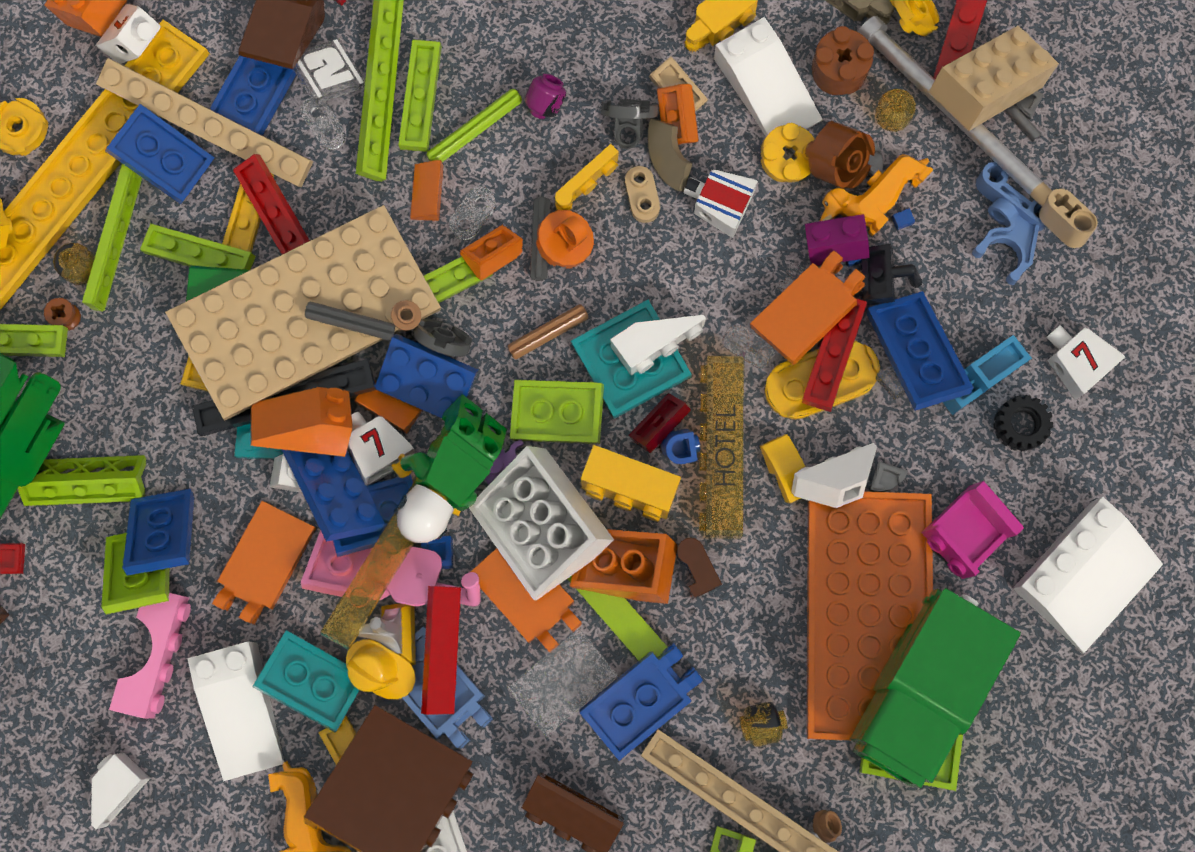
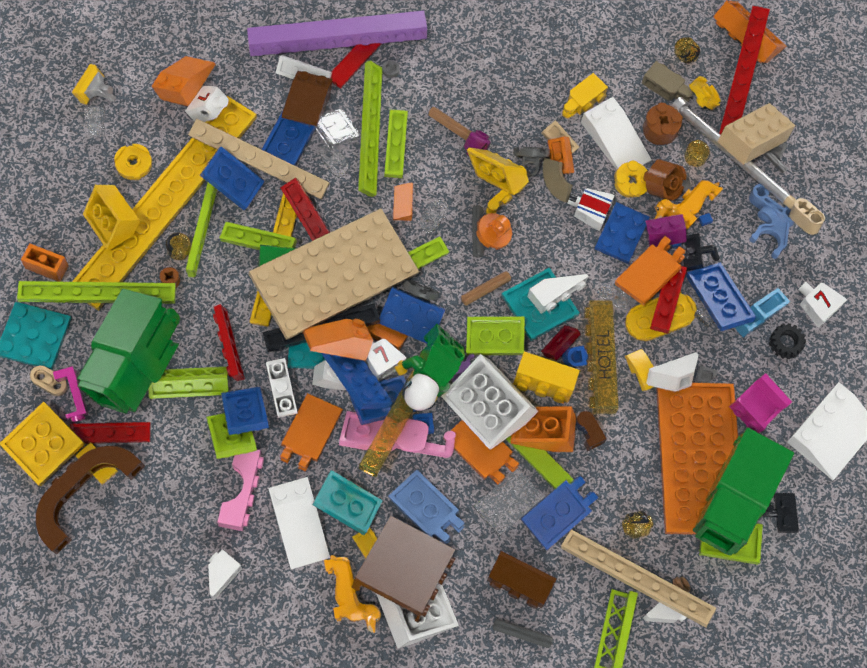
camera: 15 degrees left, 10 degrees down
(145, 419) = (226, 336): none -> red plate
(219, 495) = (281, 388): none -> white slope
(349, 320) = (365, 277): dark grey axle -> none
(379, 670) = (392, 494): yellow piece -> none
(394, 630) = (400, 471): piece -> none
(406, 325) = (394, 274): medium nougat plate -> none
(441, 650) = (432, 479): red tile -> none
(475, 126) = (432, 162): lime axle -> none
(492, 251) = (449, 238): orange slope -> none
(505, 60) = (450, 123): none -> medium nougat axle
(574, 140) = (498, 170): none -> yellow slope
(642, 193) = (541, 203): tan plate -> none
(768, 241) = (622, 233): none -> blue plate
(1004, 708) = (785, 512): none -> black plate

